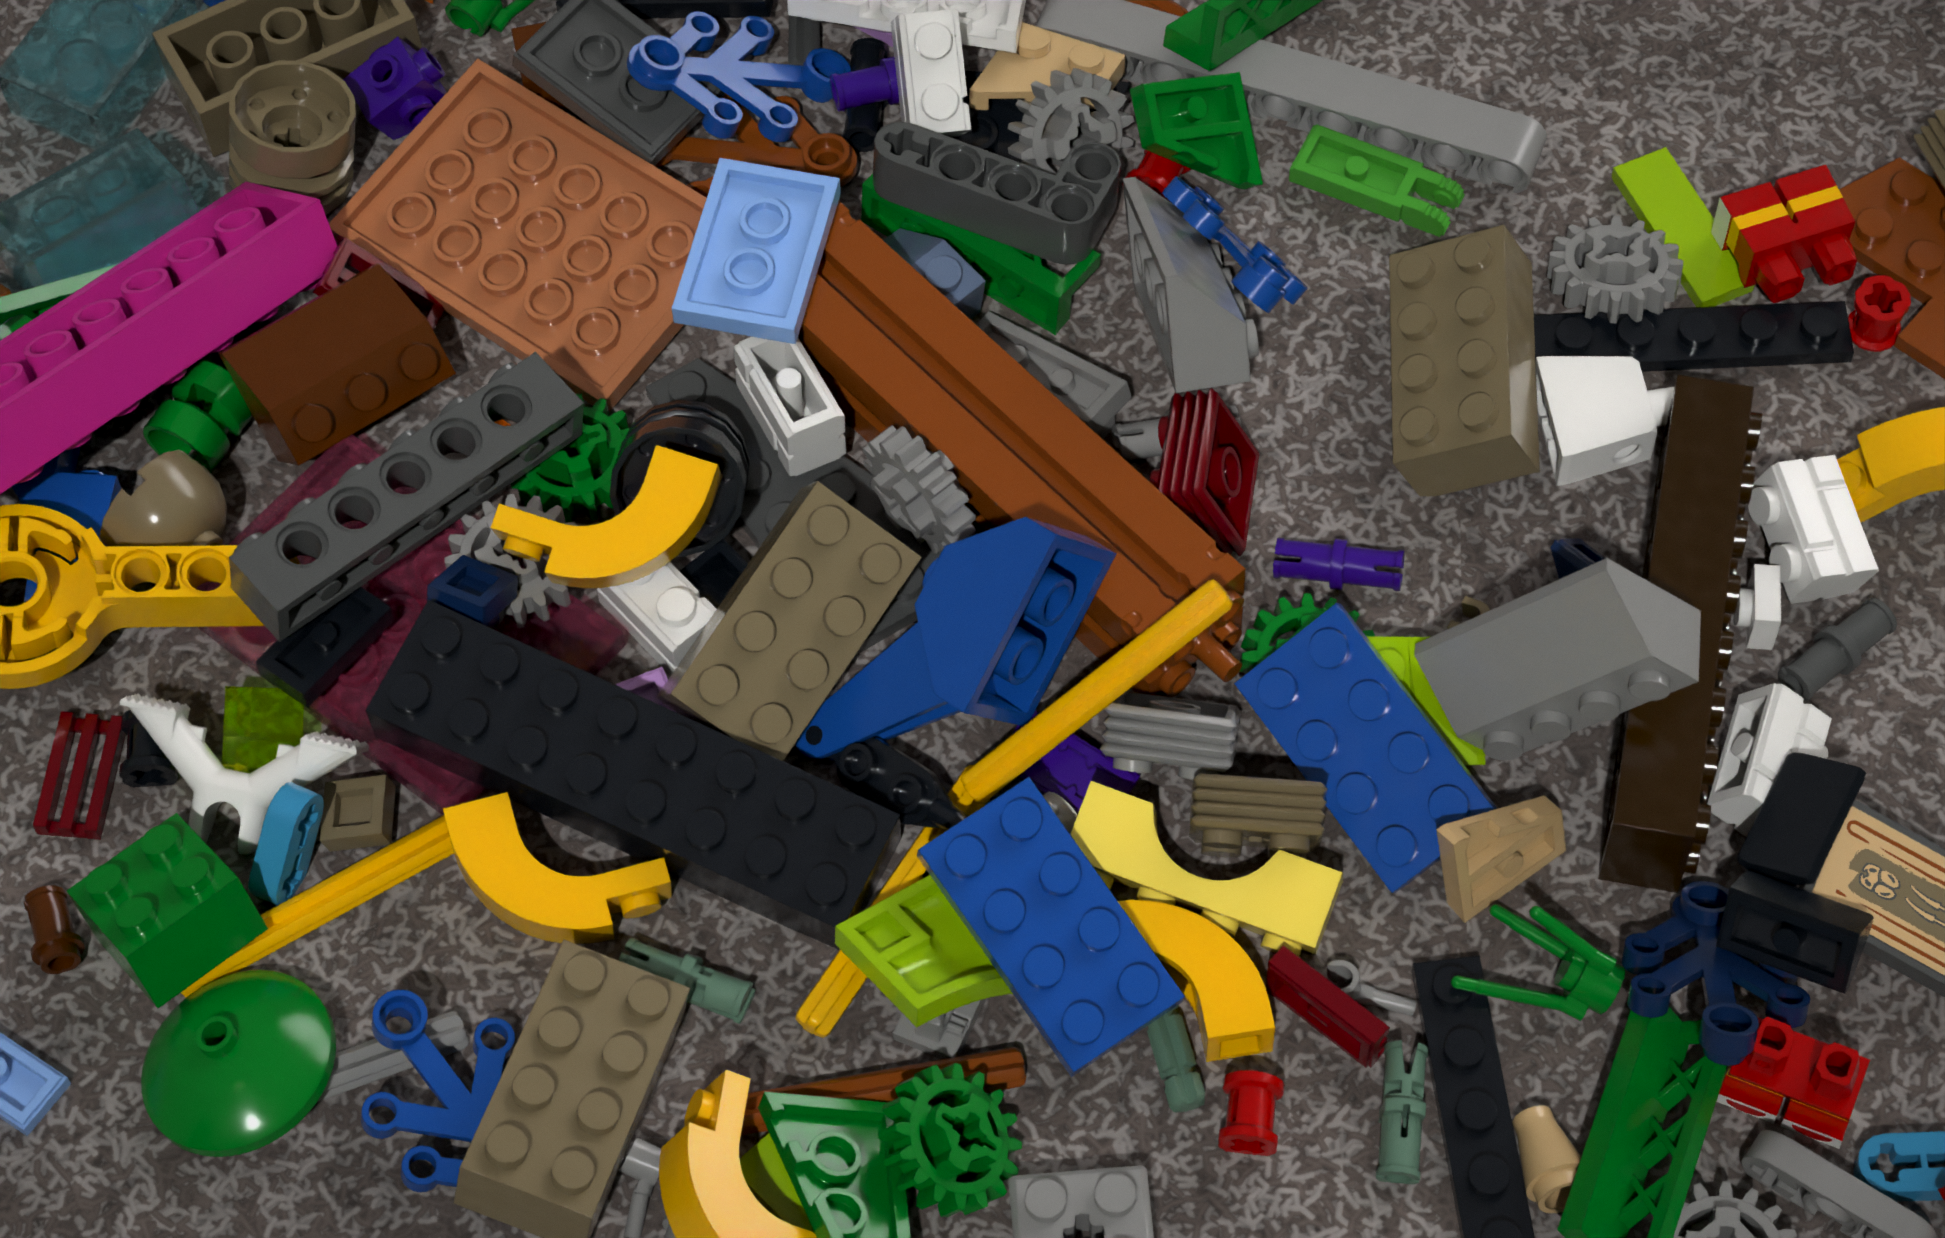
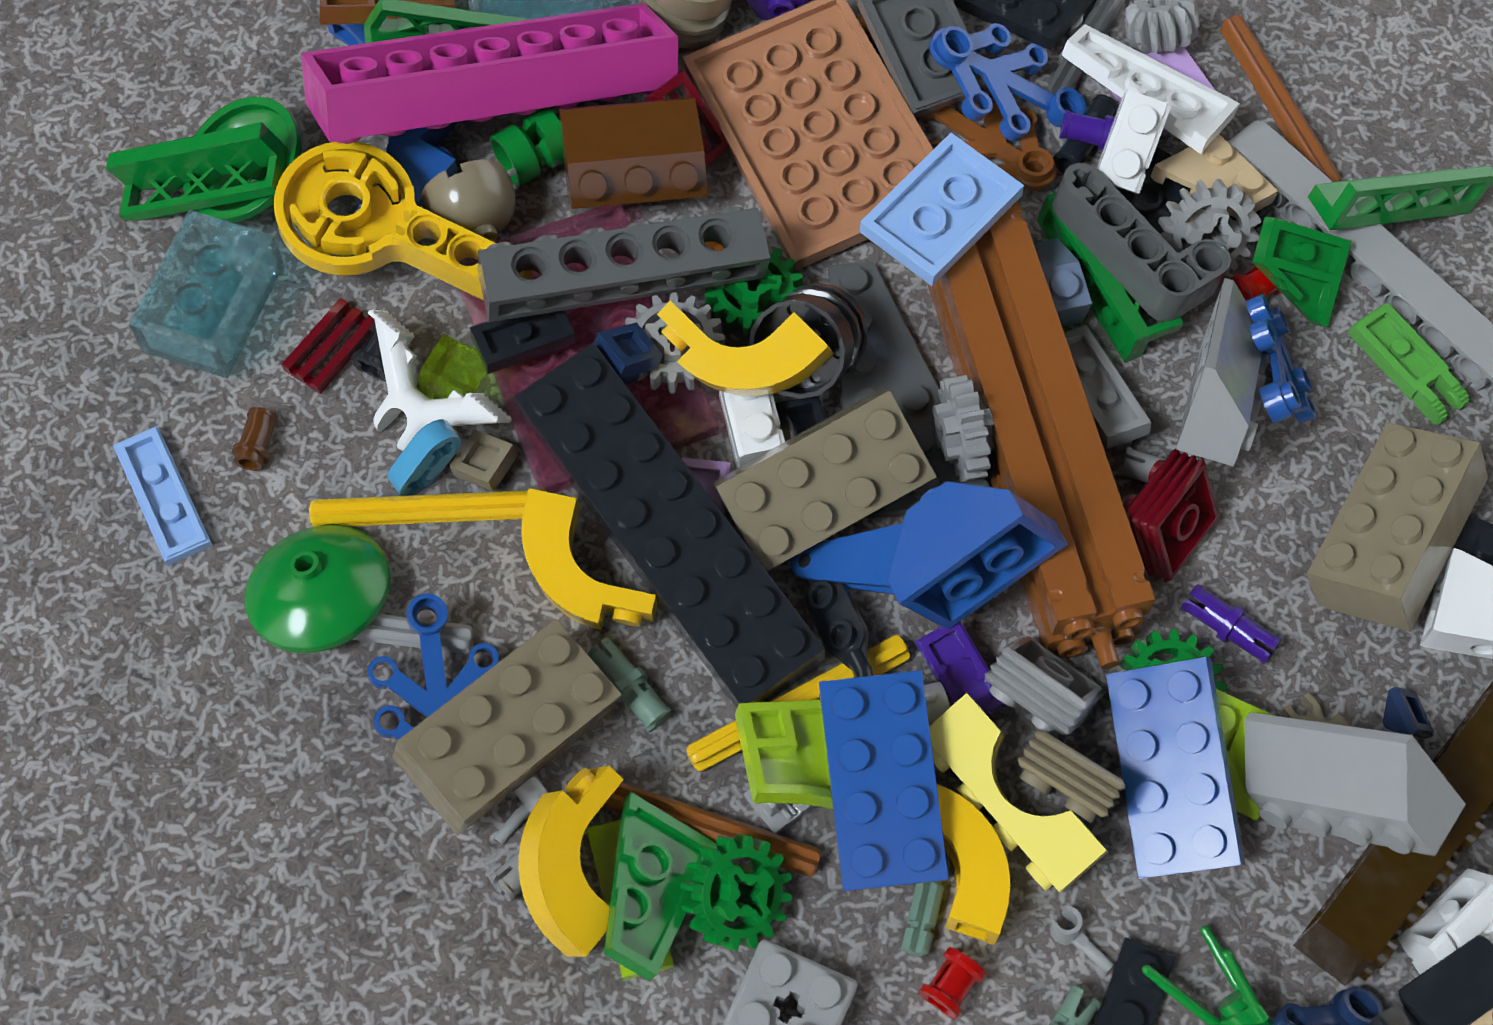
camera: 25 degrees right, 5 degrees up
(167, 909) = (325, 464): green brick -> none
(790, 403) = (912, 325): white brick -> none
(1096, 691) = (1006, 632): yellow axle -> none
(1326, 1007) = (1046, 937): dark red tile -> none
(1497, 852) = (1228, 890): tan wing -> none

